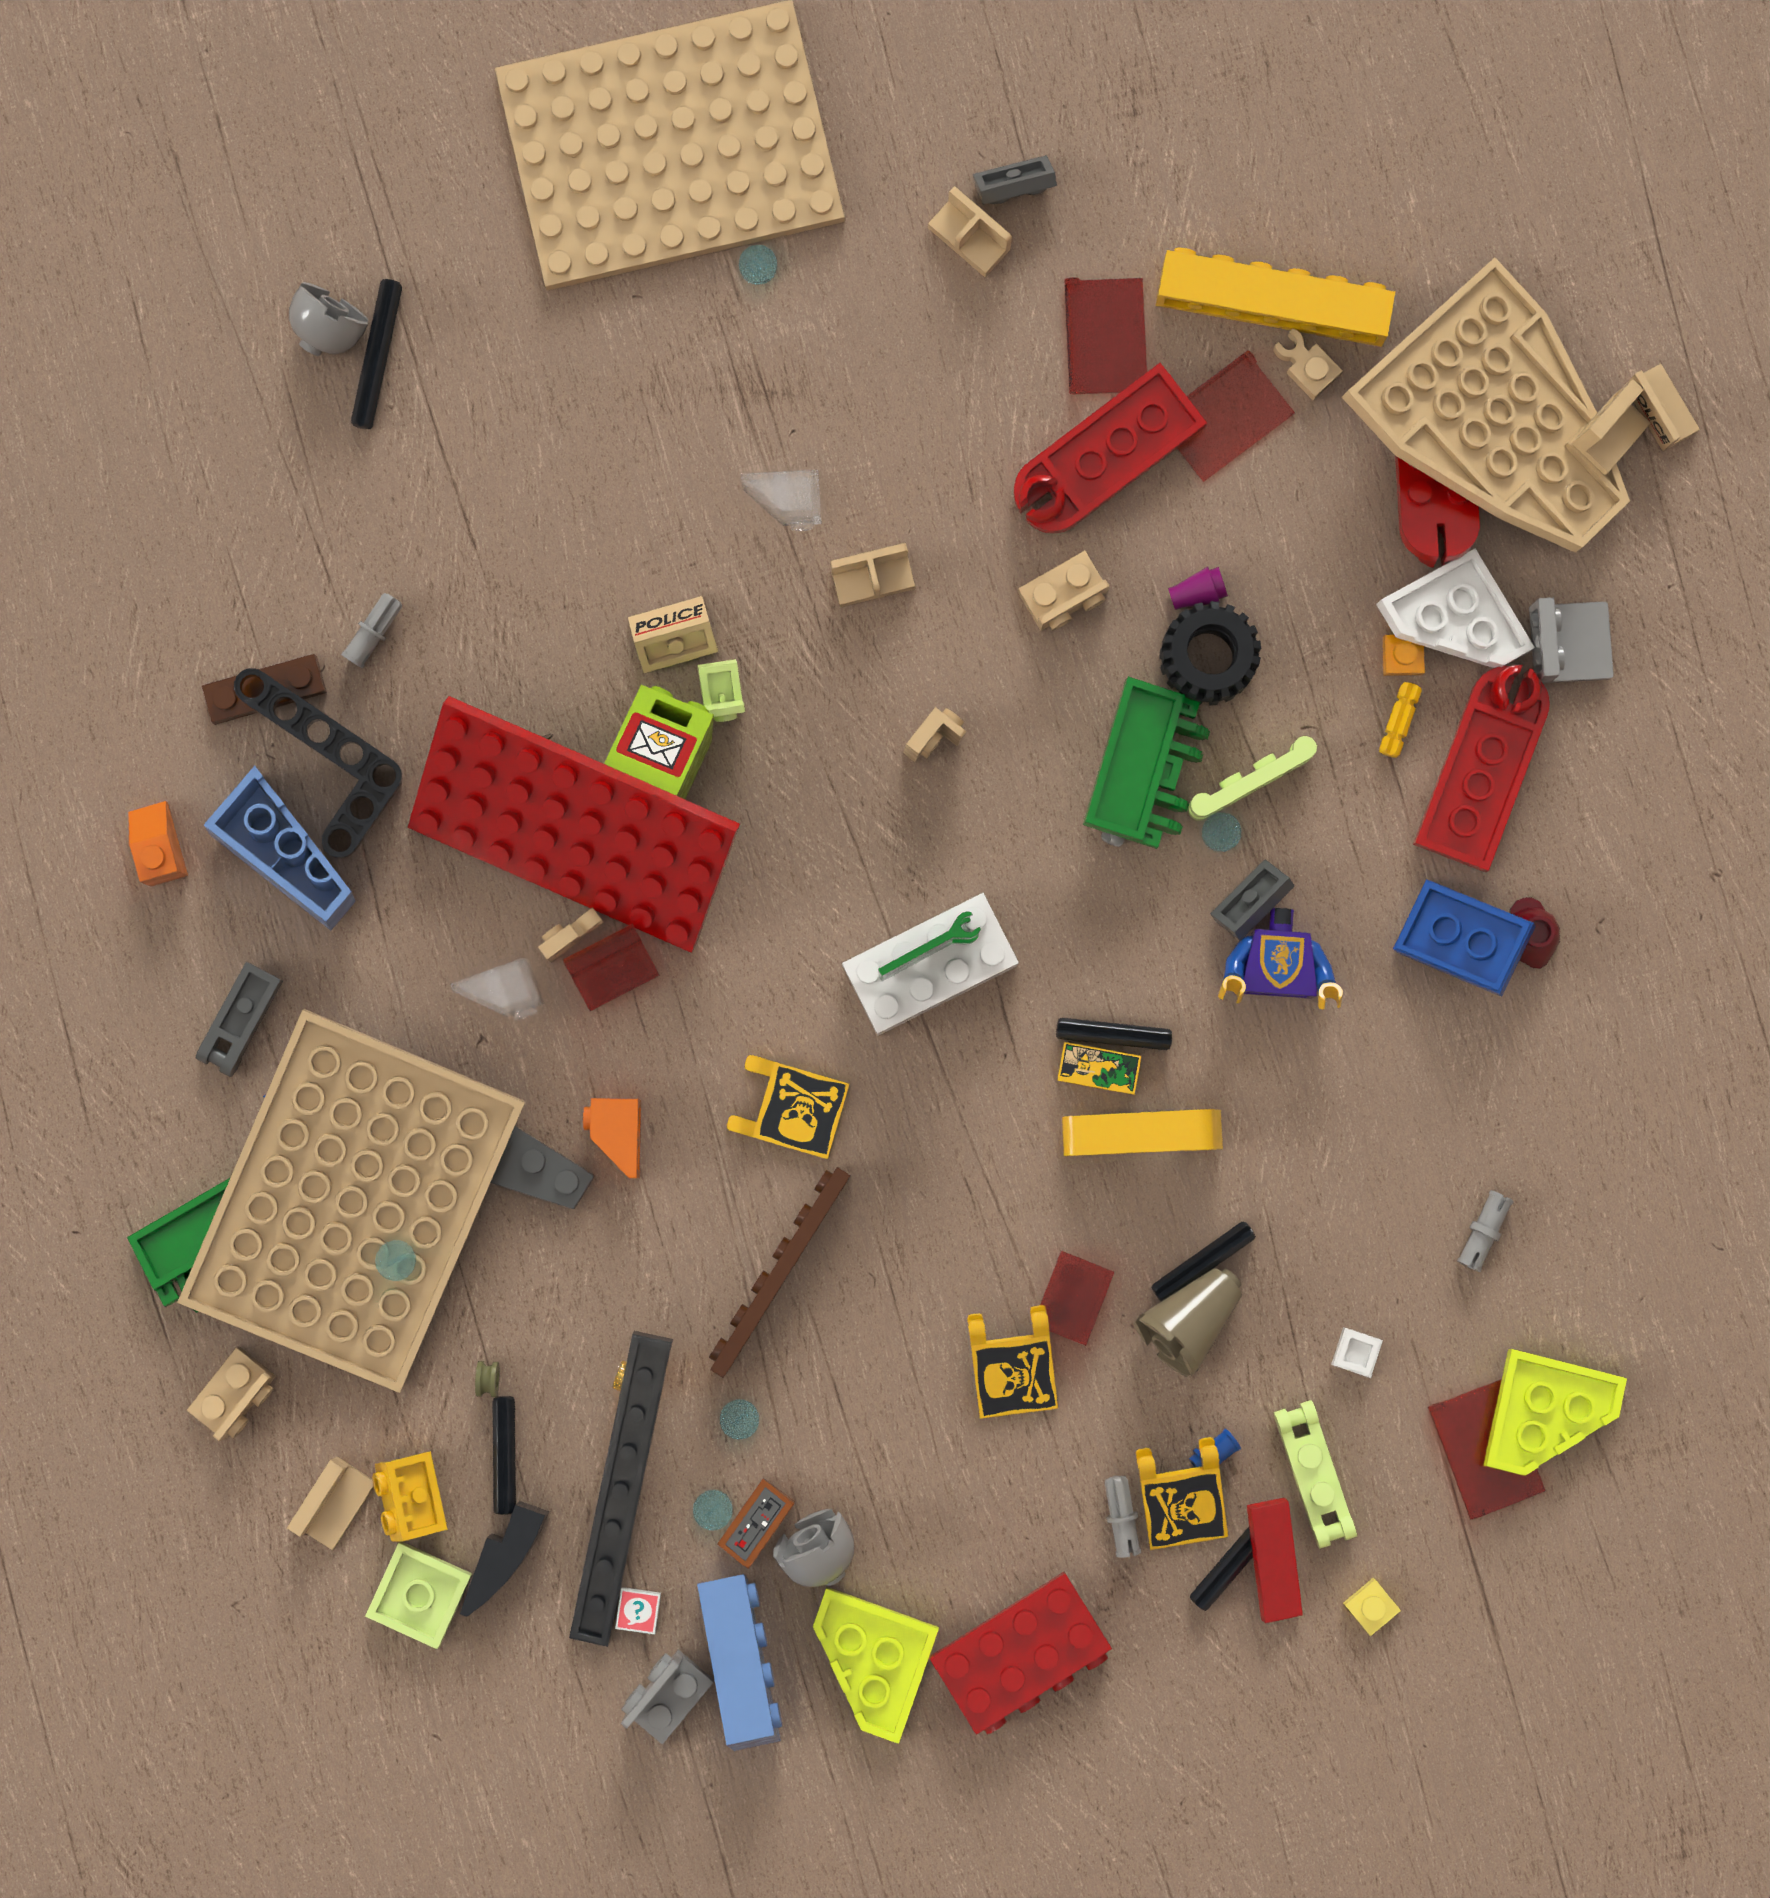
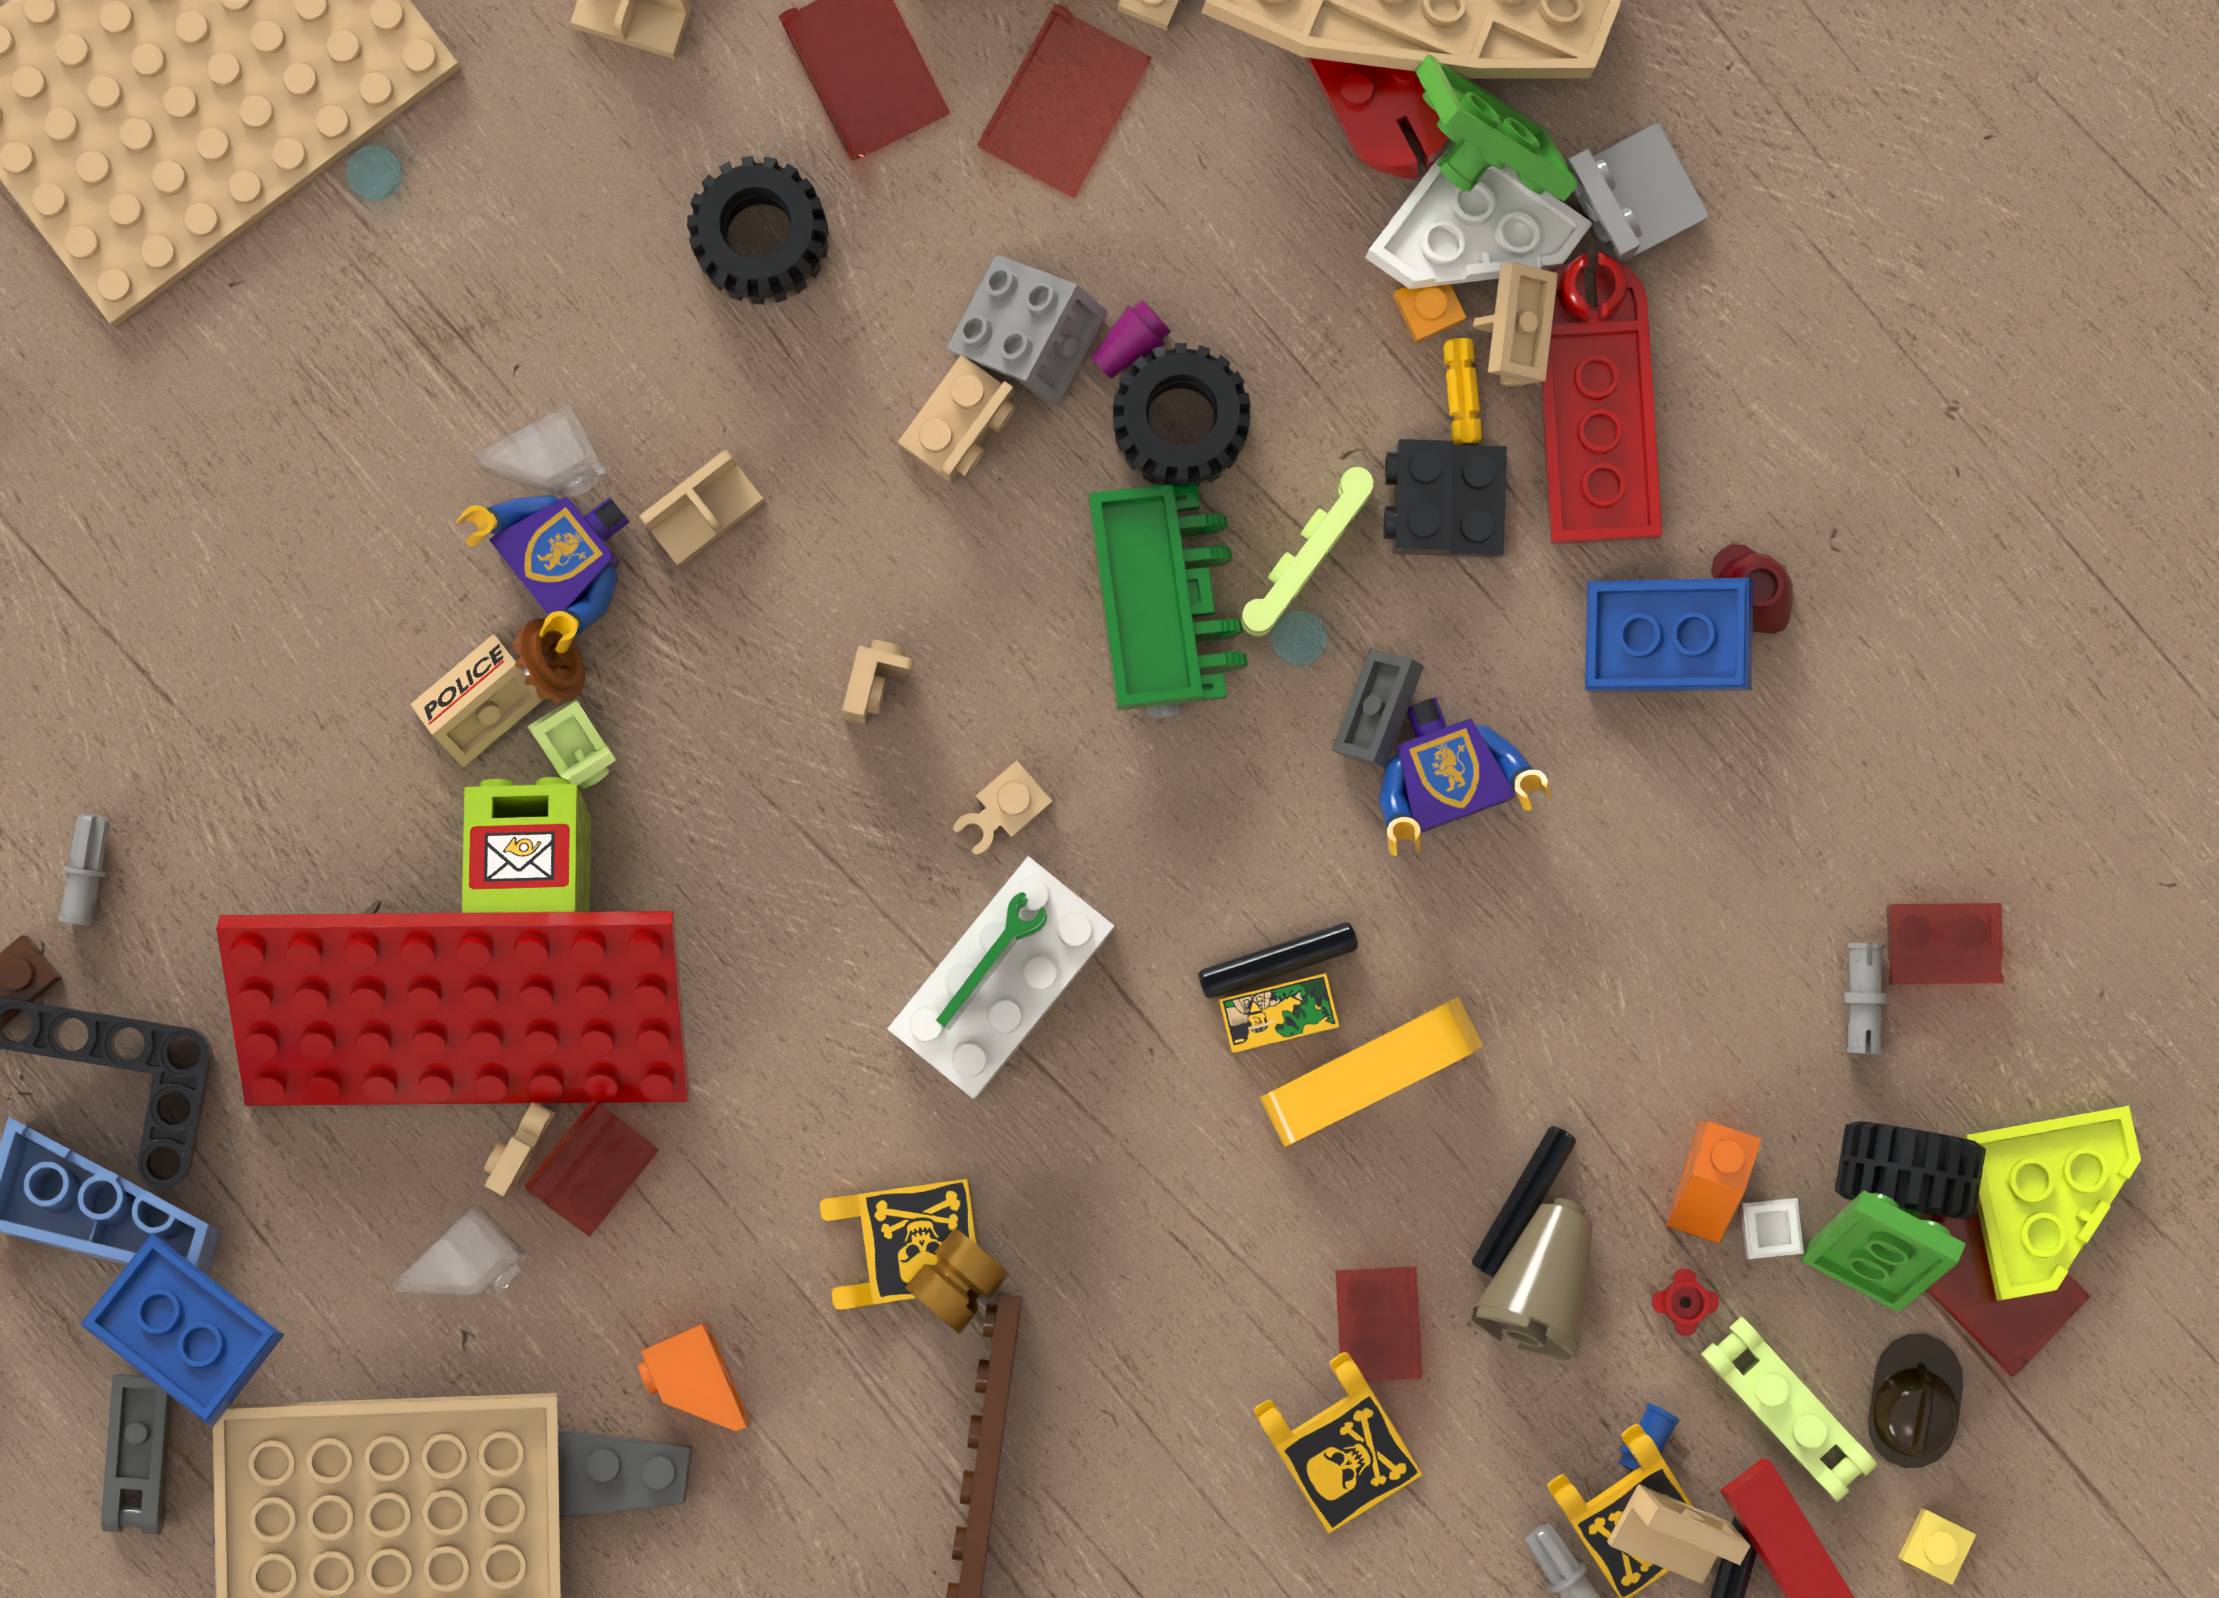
camera: 25 degrees left, 0 degrees up
(305, 951) = (182, 1330): none -> blue tile
(730, 629) = (567, 668): none -> dark orange gear
(765, 563) = (555, 555): none -> torso
(814, 1145) = (957, 1280): none -> pearl gold wheel
(985, 854) = (1009, 803): none -> tan plate
(994, 380) = (738, 190): none -> black tyre
(1107, 452) = (932, 215): red plate -> none
(1136, 552) = (1028, 327): none -> light grey bracket
(1204, 1521) = (1675, 1535): none -> tan panel
(1282, 1363) = (1701, 1302): none -> red plate
(1332, 1303) = (1713, 1180): none -> orange slope
(1358, 784) = (1446, 499): none -> black plate
(1400, 1507) = (1915, 1401): none -> dark brown piece
(1425, 1396) = (1883, 1250): none -> bright green plate
(1458, 692) = (1521, 324): none -> tan panel
(1465, 1353) = (1911, 1167): none -> black tyre
(1494, 560) = (1490, 135): none -> bright green plate
(1553, 1219) = (1945, 943): none -> clear red plate

